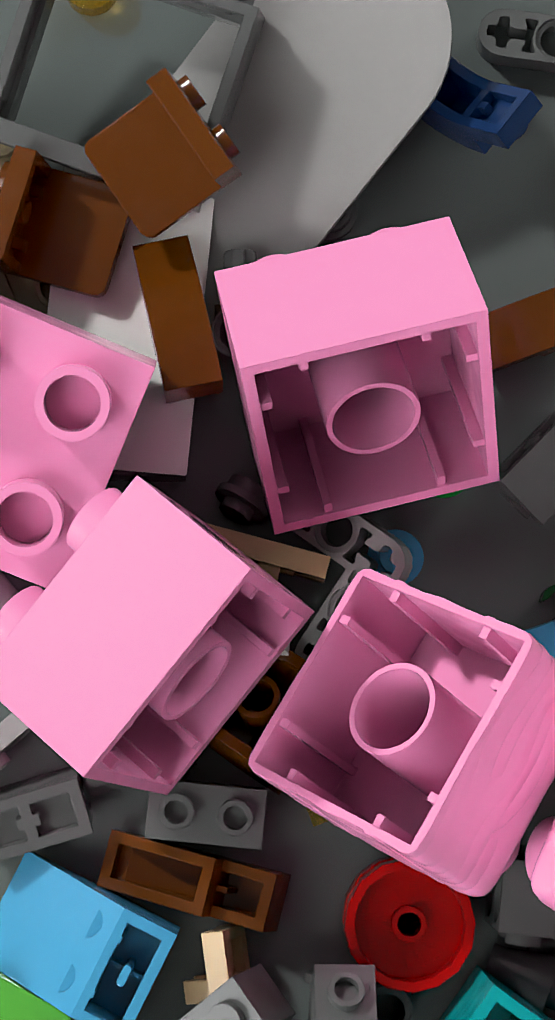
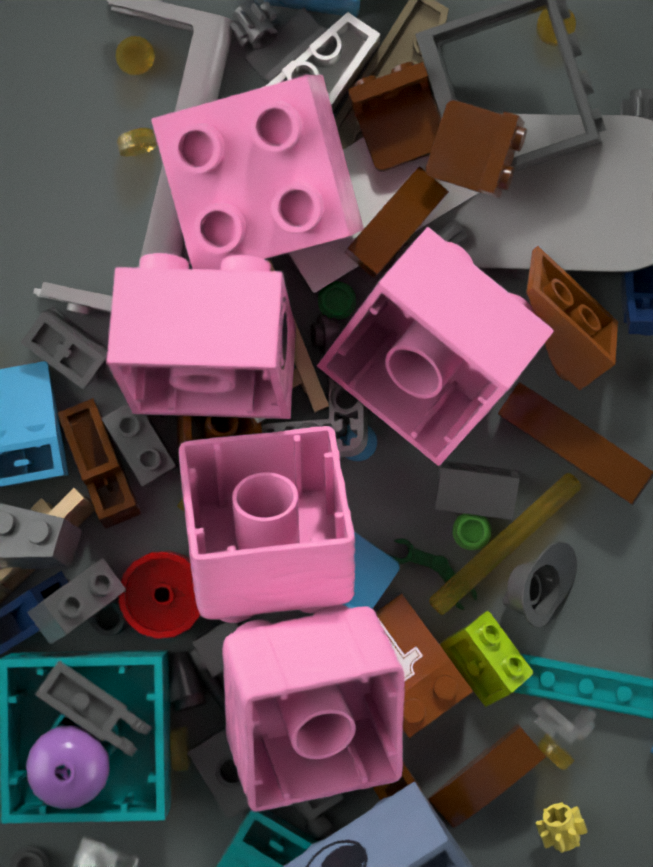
camera: 55 degrees right, 5 degrees up
(214, 458) = (337, 300): none -> green plate
(485, 204) = (583, 329): none -> dark orange slope

